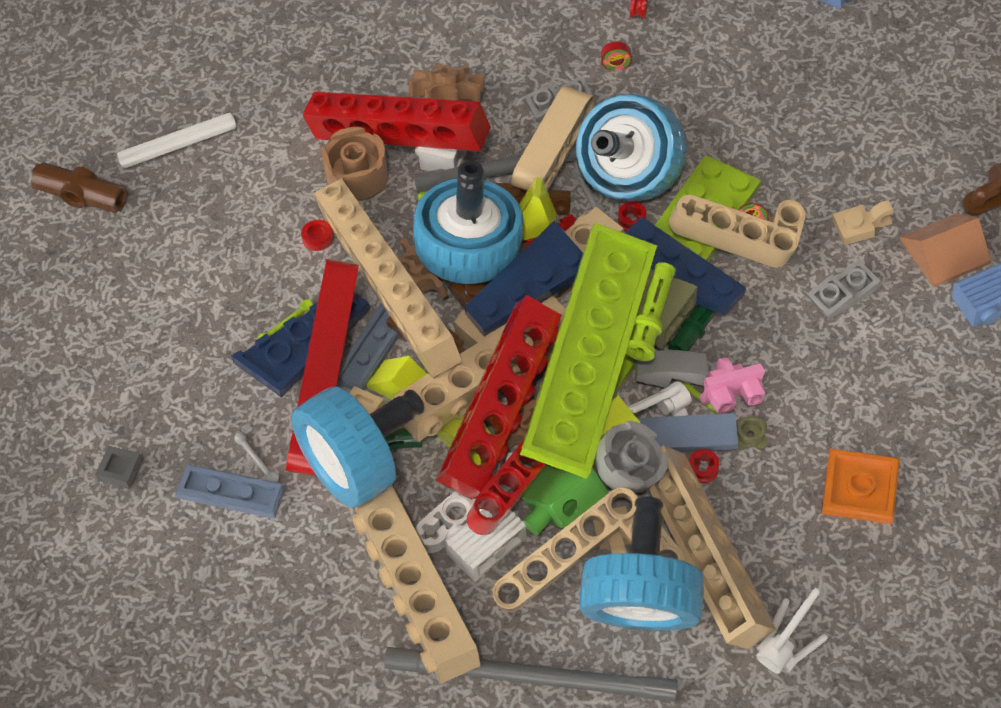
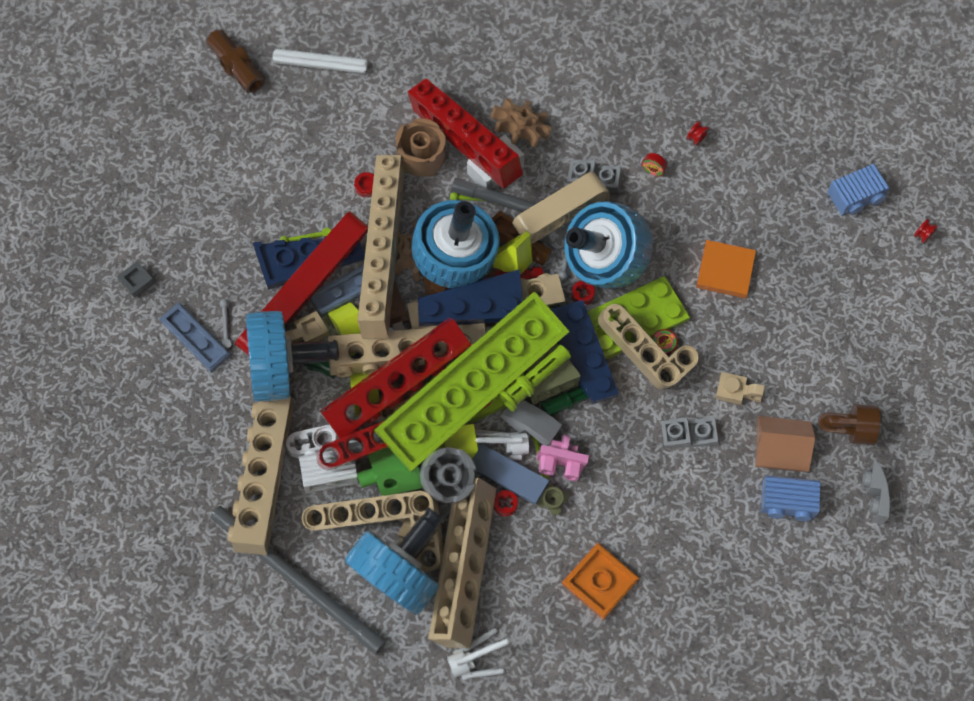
camera: 25 degrees right, 10 degrees up
(762, 117) = (726, 269): none -> orange tile

